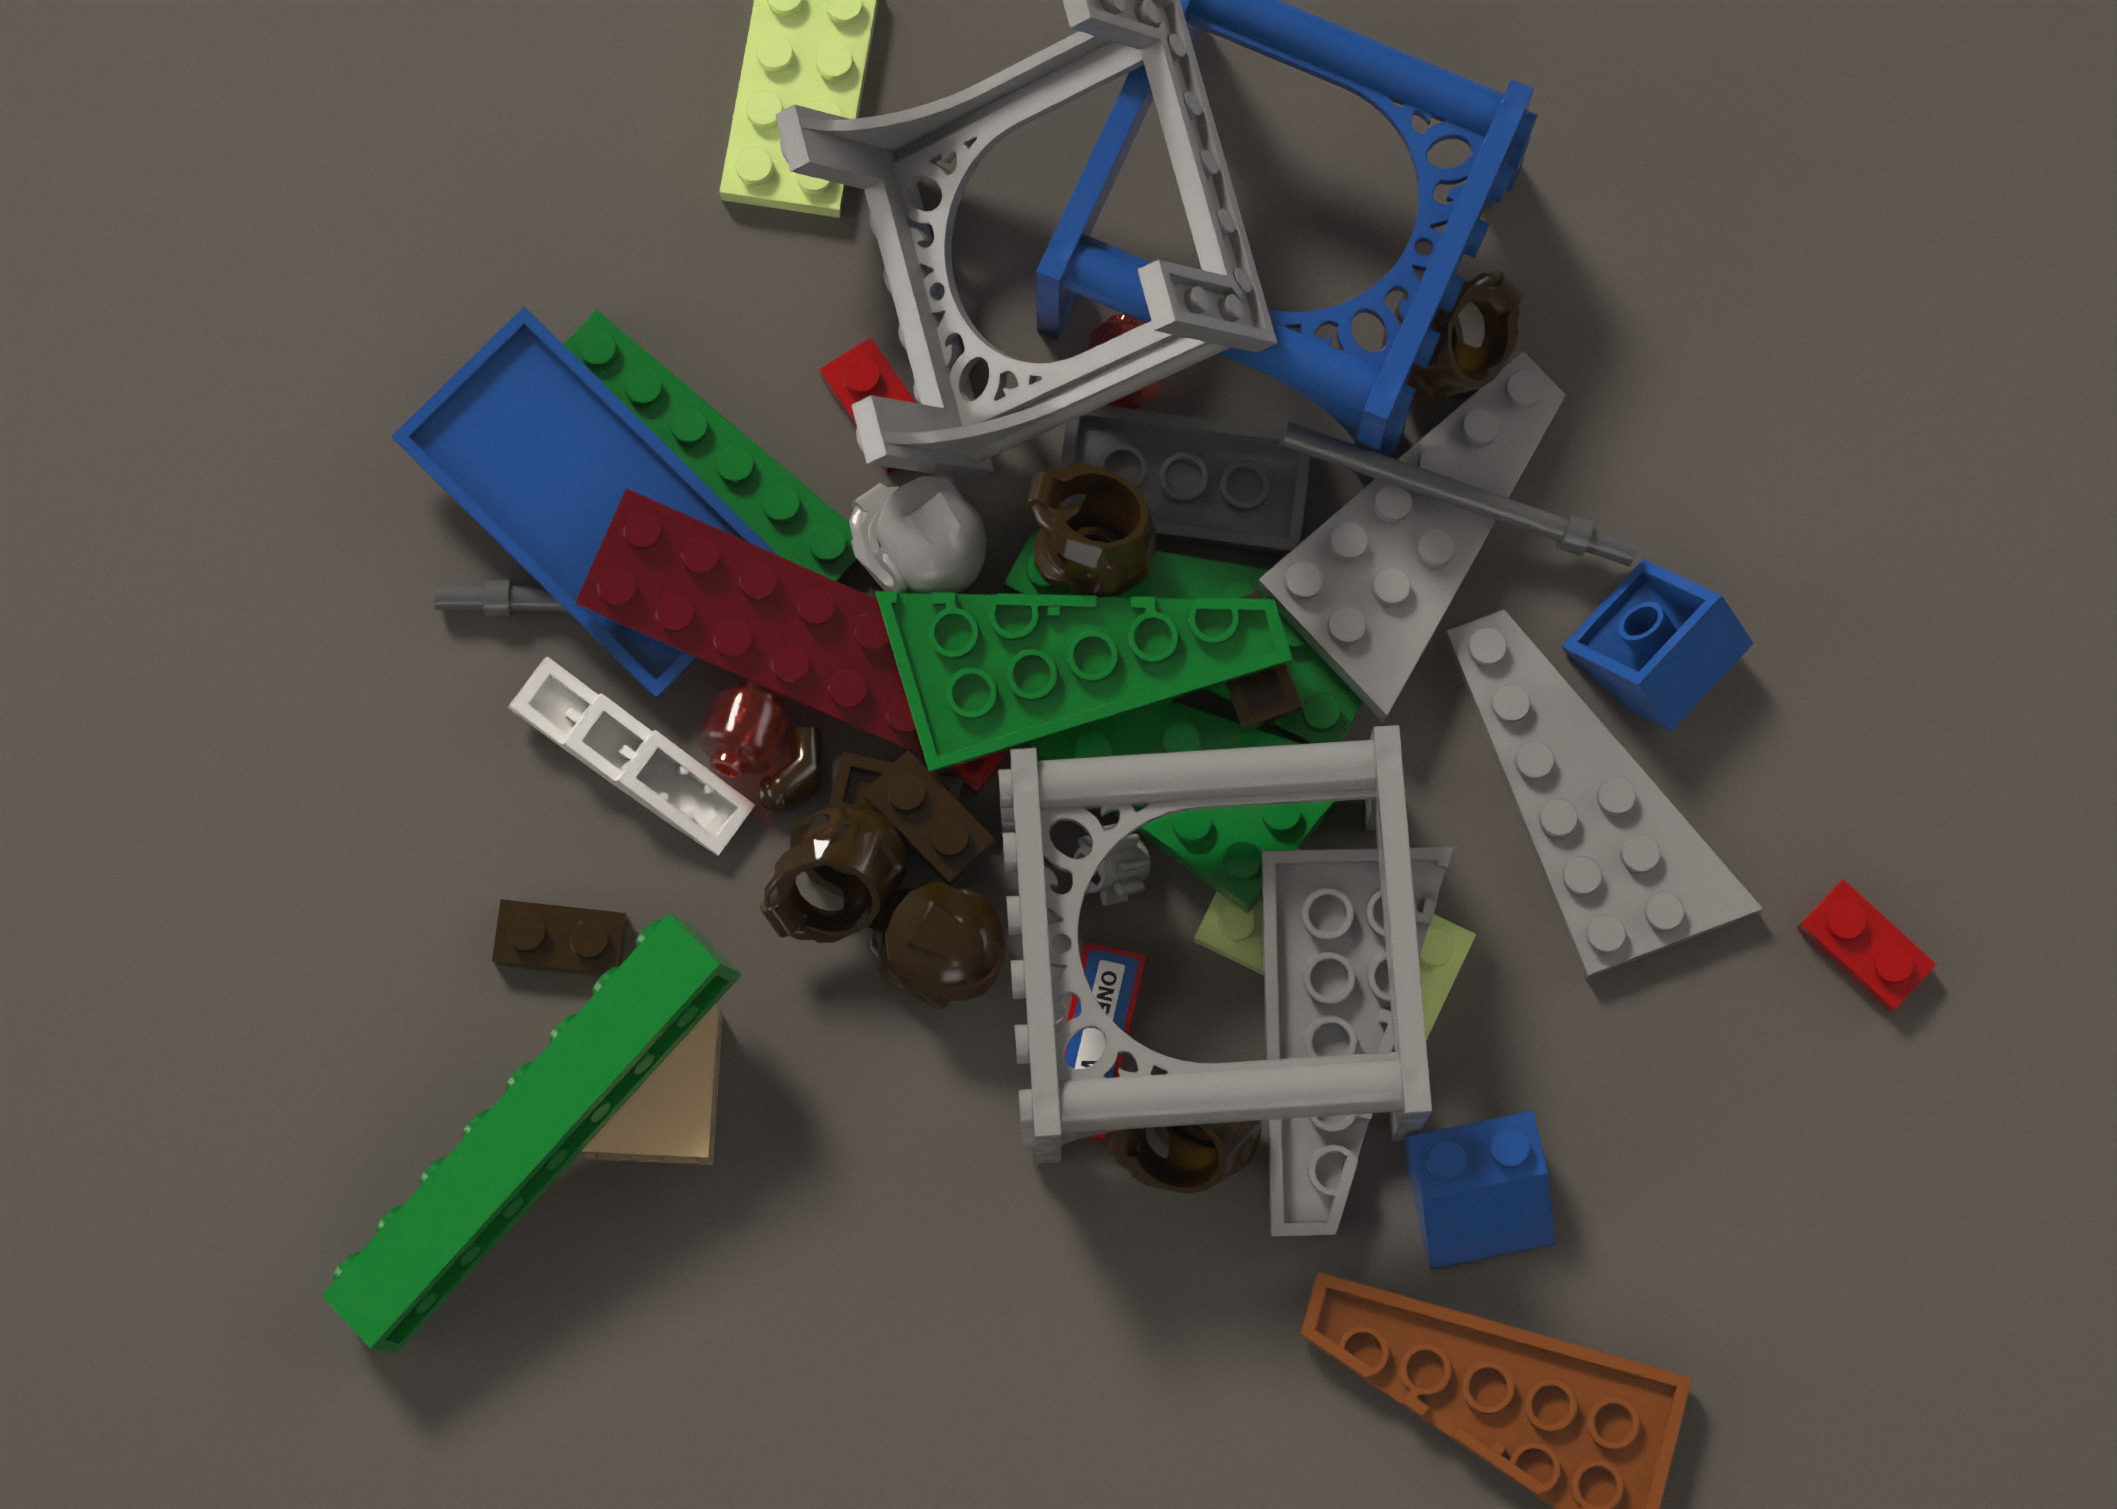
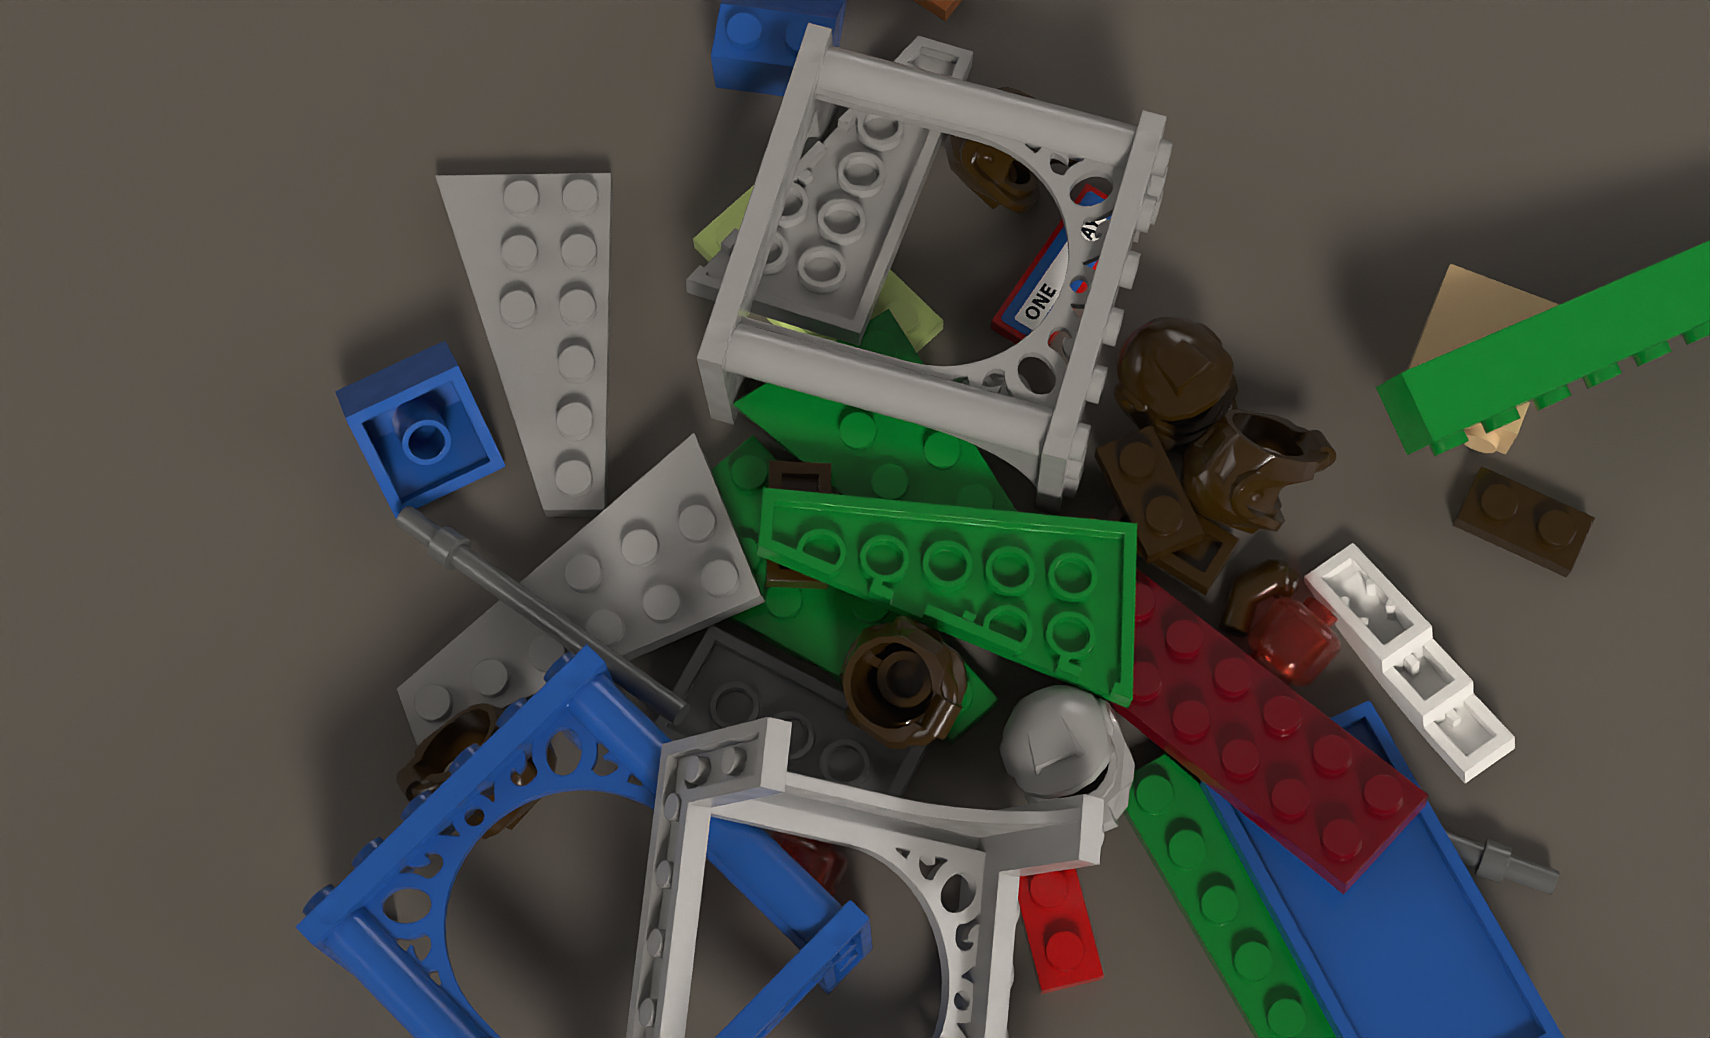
camera: 155 degrees left, 5 degrees down
(1866, 946) = (361, 122): red plate -> none

